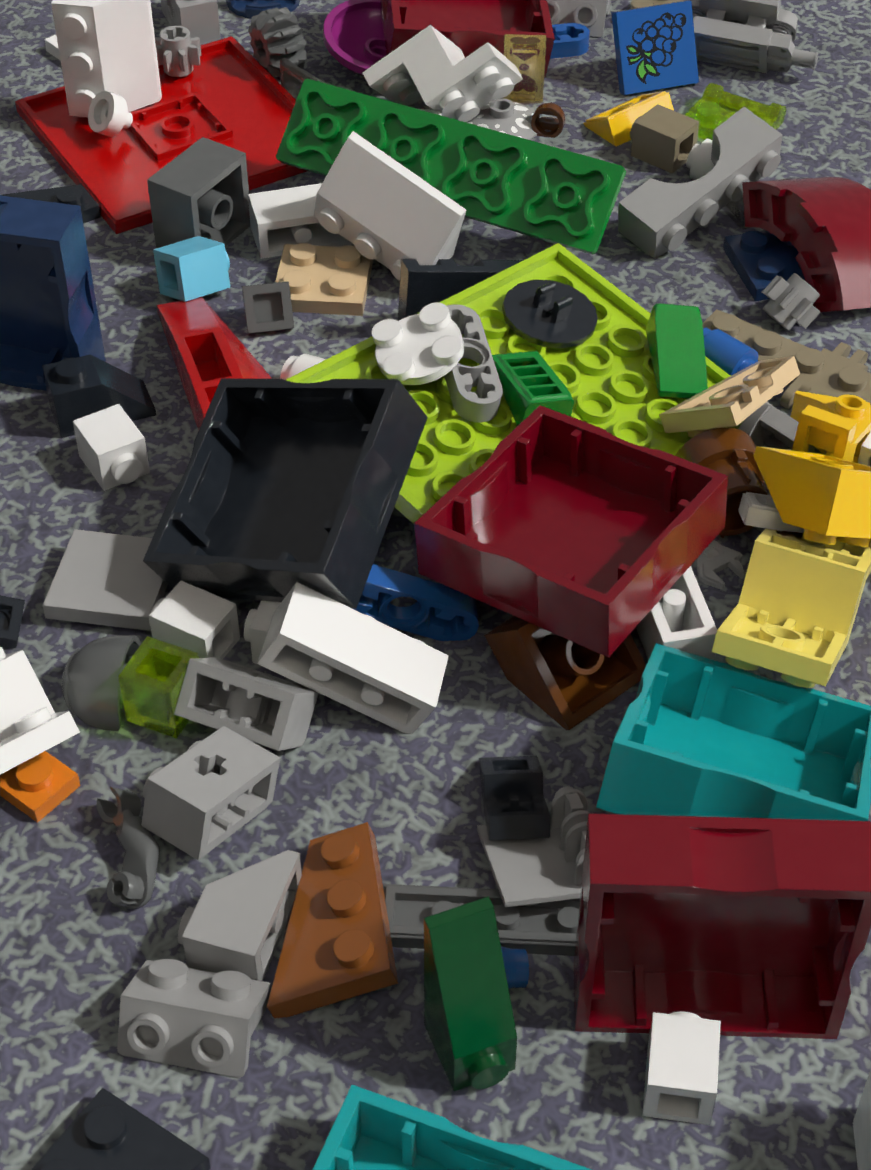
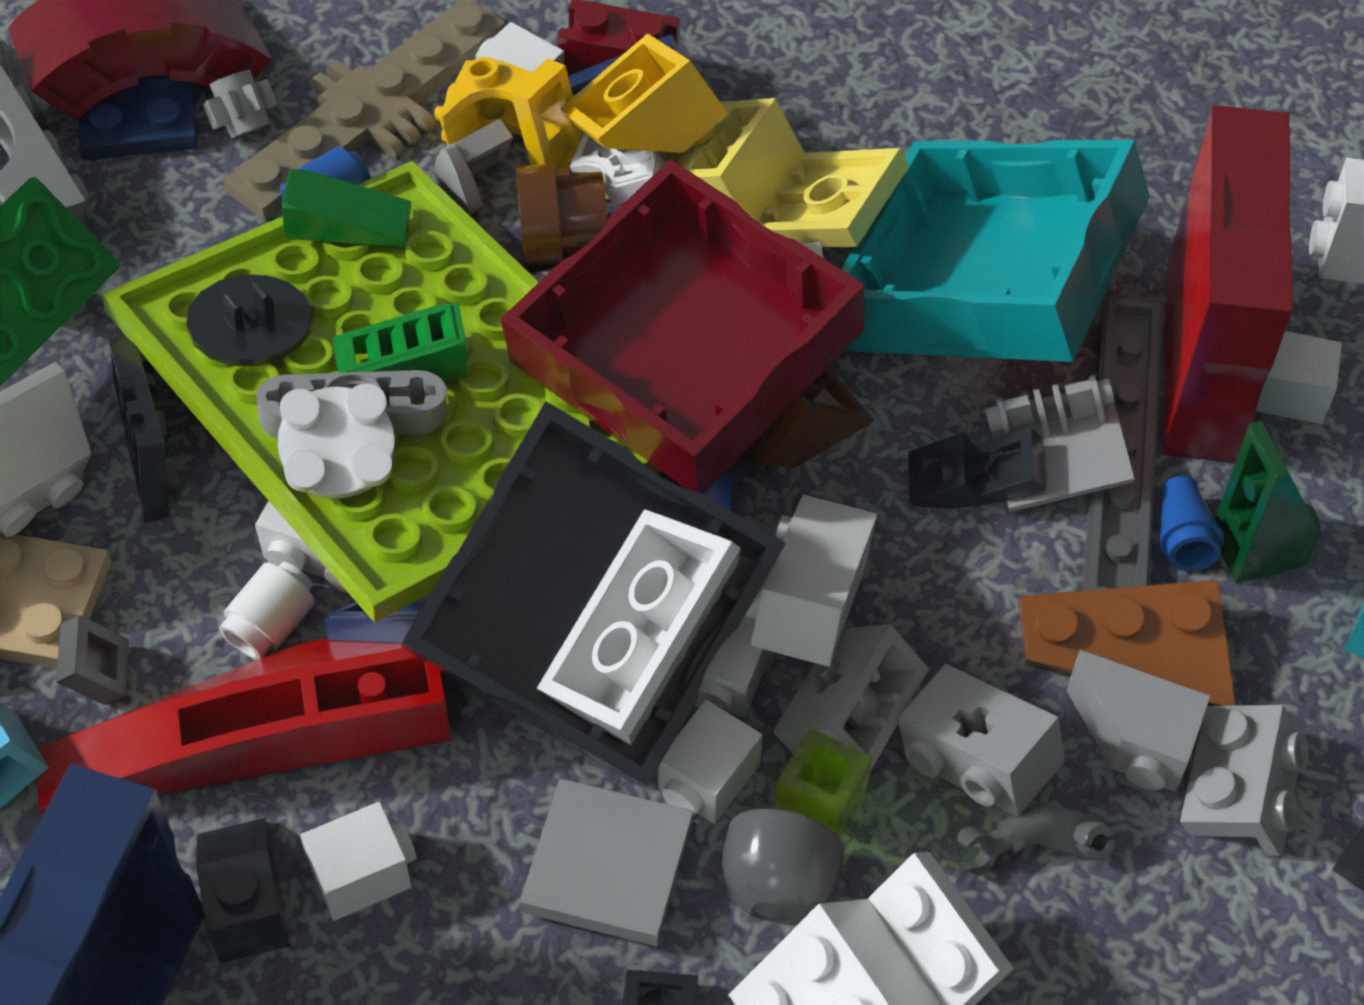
camera: 85 degrees left, 10 degrees up
(244, 514) = (639, 624): none -> white slope
(732, 398) = (446, 171): tan wing -> none

